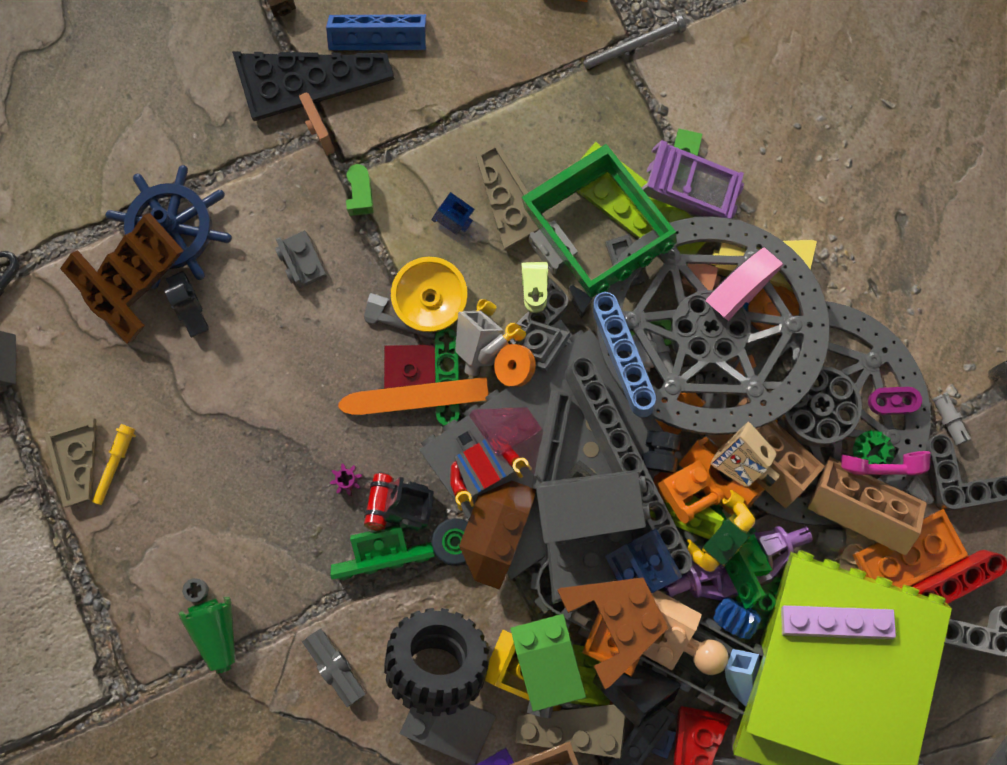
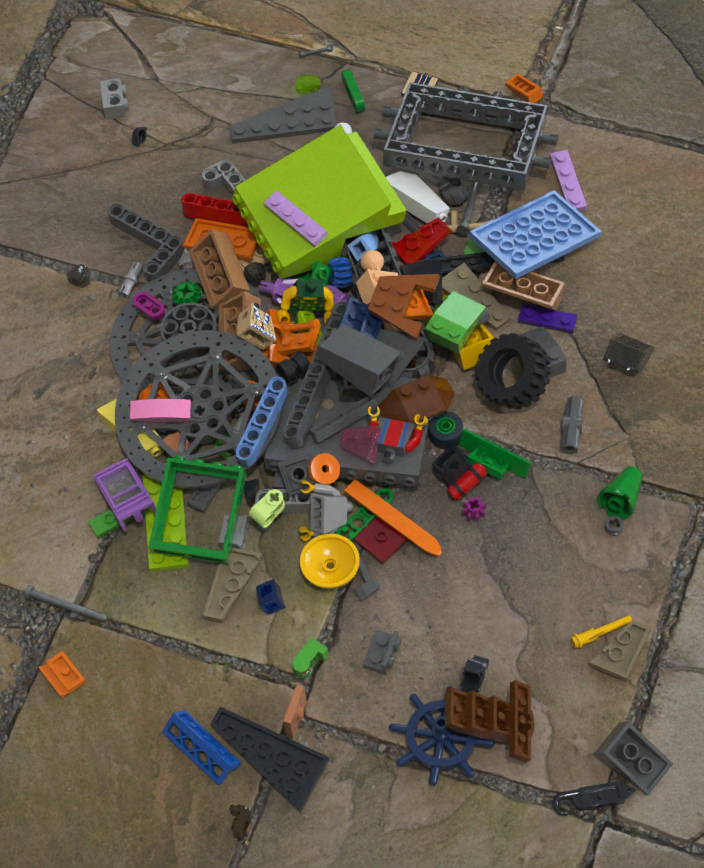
camera: 135 degrees left, 20 degrees down
(913, 464) = (174, 269): dark pink piece -> none

